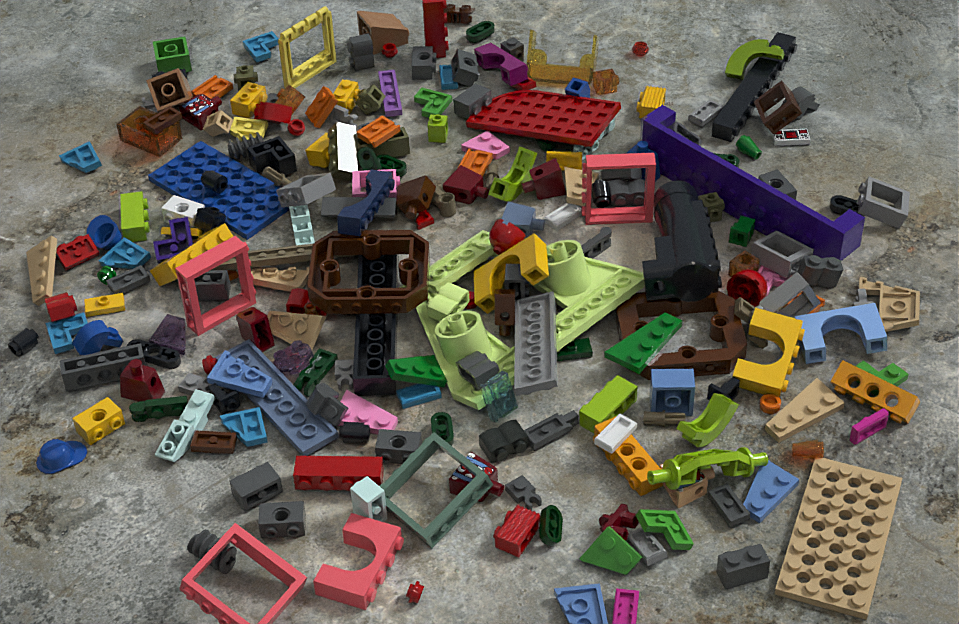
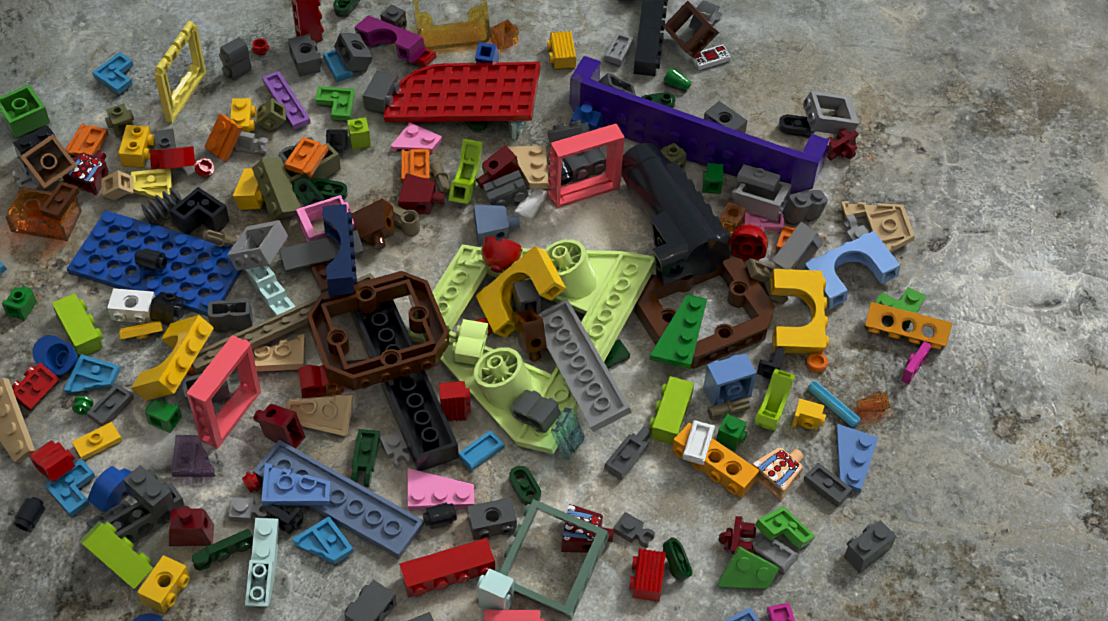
camera: 25 degrees left, 10 degrees up
(69, 383) = (117, 553): none -> lime brick
(98, 191) = (19, 303): none -> green brick
(116, 342) = (149, 492): none -> dark grey brick
(166, 298) = (163, 415): none -> green brick
(166, 358) = (199, 480): black beam -> none
(180, 240) = (151, 346): dark purple brick -> none
(213, 442) = (298, 570): reddish brown plate -> none
(257, 235) = (230, 315): none -> dark grey brick
(290, 97) = (182, 134): clear orange brick -> none
(293, 358) = (336, 437): clear purple plate -> none
(325, 403) = (395, 493): dark grey brick -> none
(382, 29) = (242, 22): medium nougat slope -> none
(410, 341) = (455, 400): none -> red brick
(416, 129) = (337, 139): none -> black brick
(417, 370) = (474, 428): green wing -> none
(424, 219) = (392, 246): red tile -> none
(503, 441) = (591, 480): pearl dark grey brick -> none
(544, 197) = (506, 189): none -> dark grey brick
(566, 159) = (510, 137): yellow plate -> none
(597, 244) = (580, 232): dark grey plate -> none
(654, 436) = (732, 432): none -> green brick
(686, 465) = (786, 455): lime plate -> none
(736, 438) = (809, 415): none -> yellow brick
(769, 441) = (834, 404): none -> medium azure axle
(782, 235) = (758, 177): none -> light grey plate
(806, 409) = (852, 359): tan wing -> none
(872, 551) = (904, 493): tan piece -> none
(884, 232) = (843, 146): none -> dark red hips

